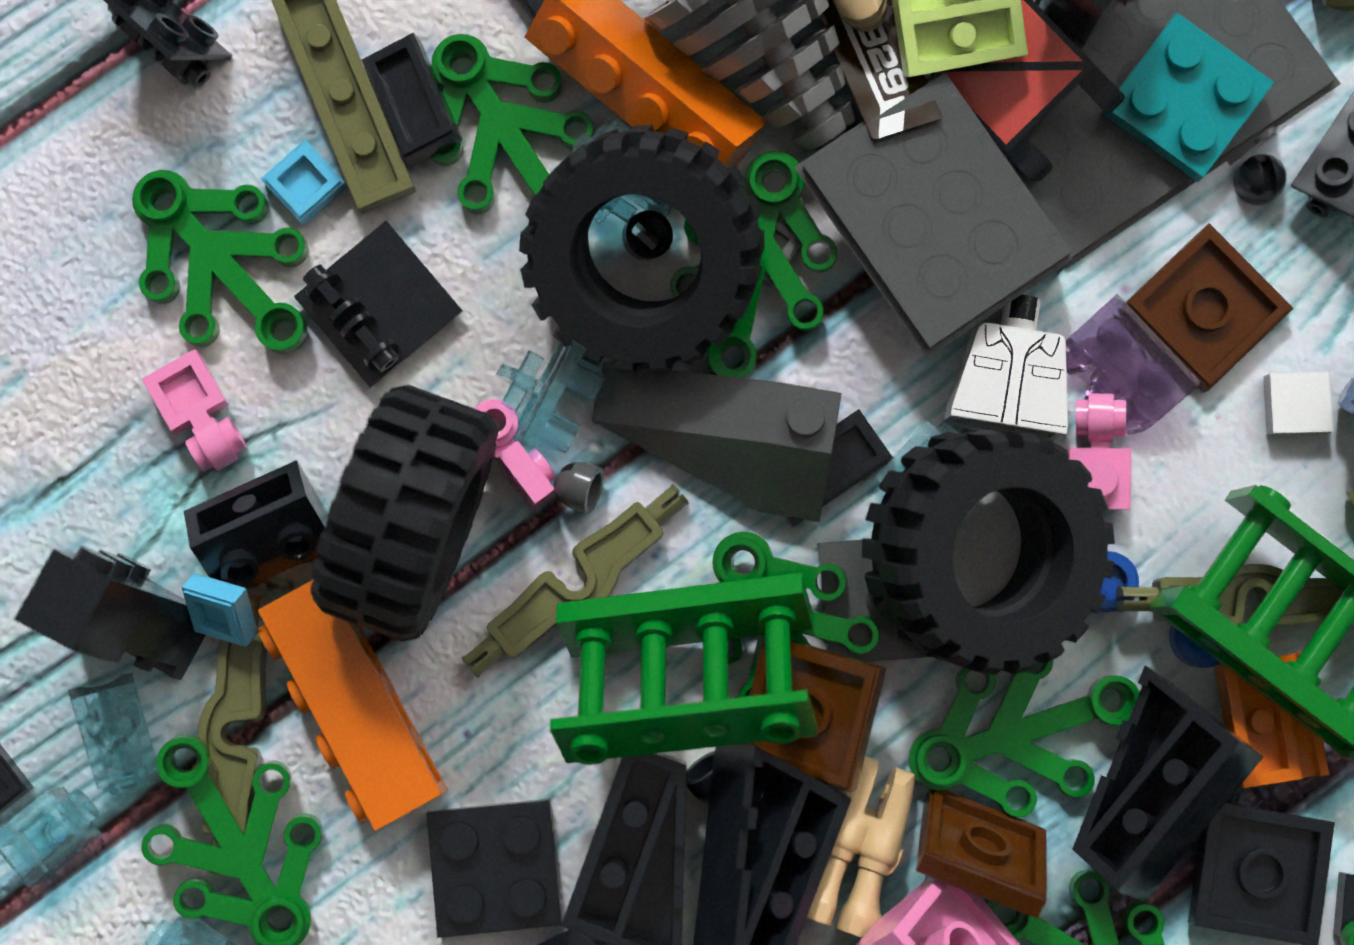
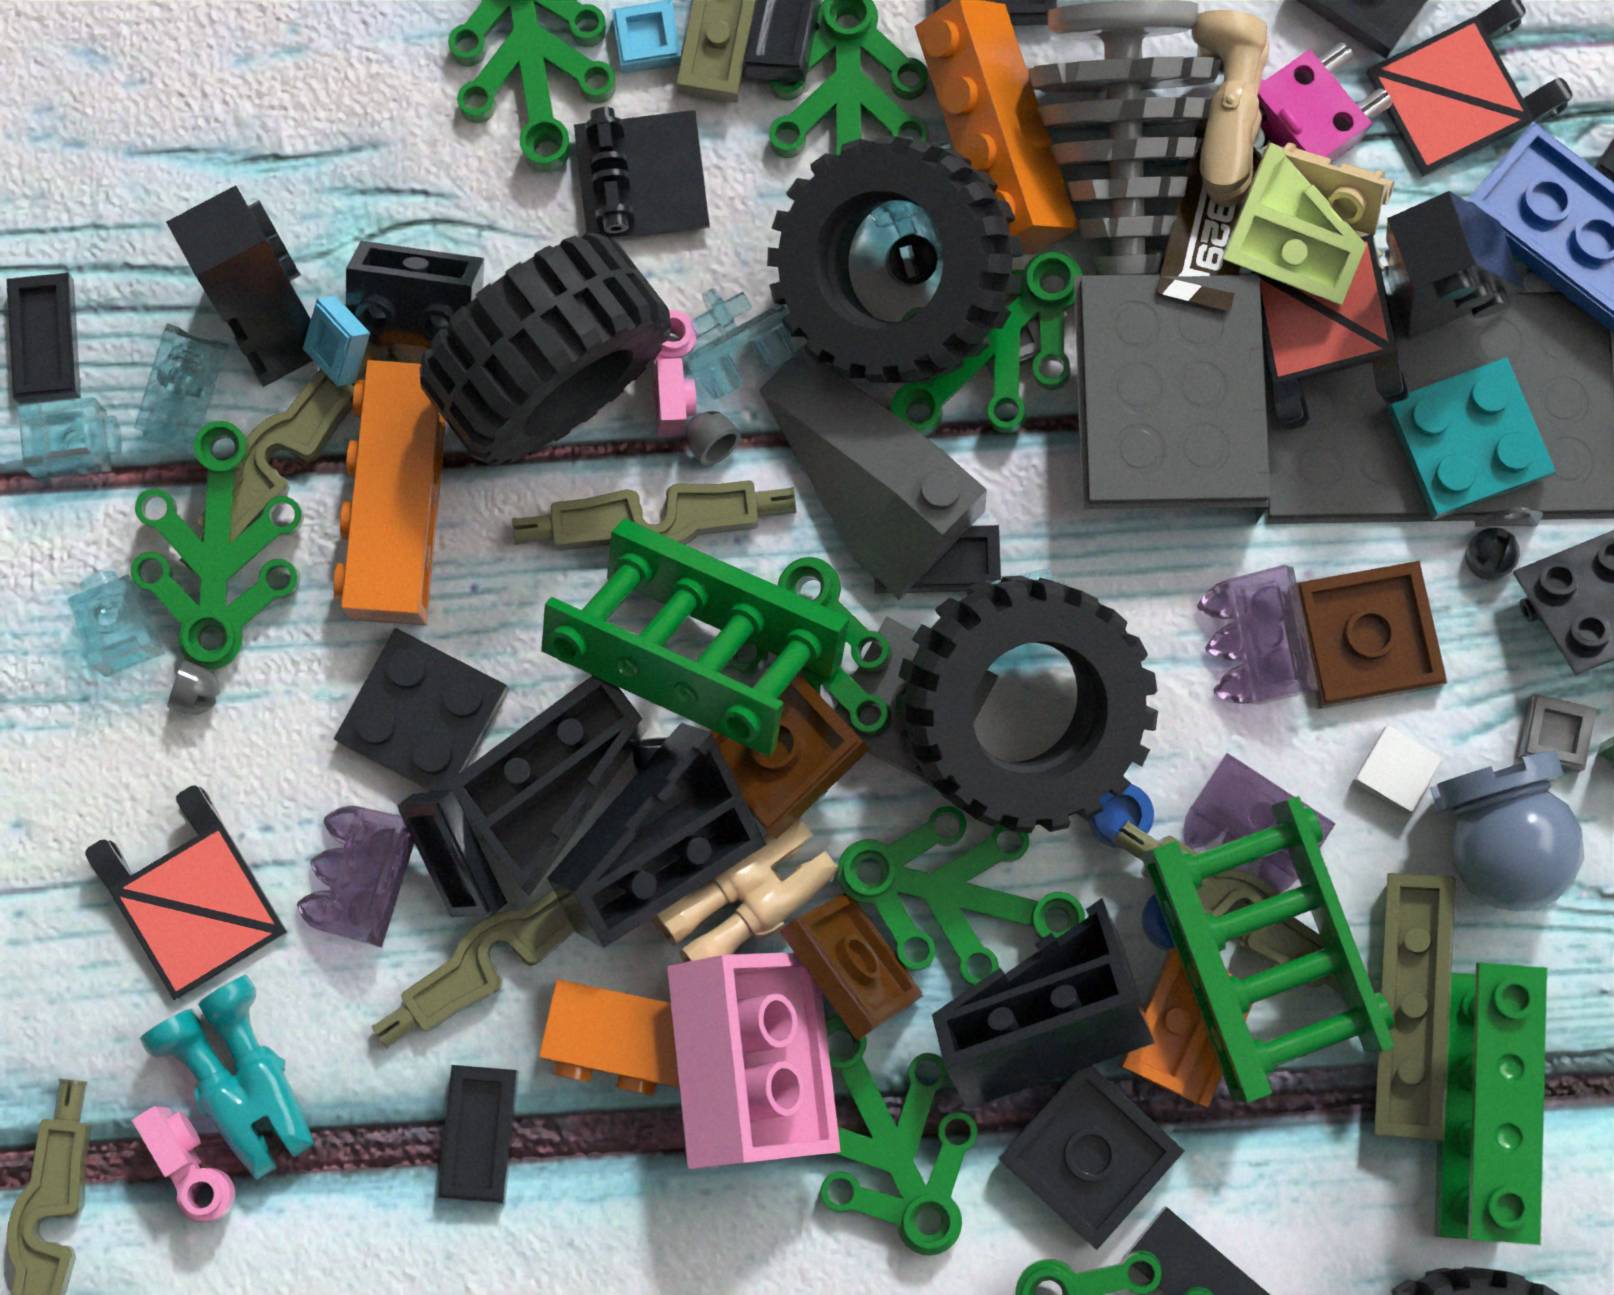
camera: 35 degrees right, 5 degrees down
(188, 398) = (427, 152): bright pink plate -> none
(1012, 376) = (1153, 576): white torso -> none
(1110, 467) = (1181, 710): bright pink plate -> none
(1198, 512) = (1240, 804): none -> clear purple plate

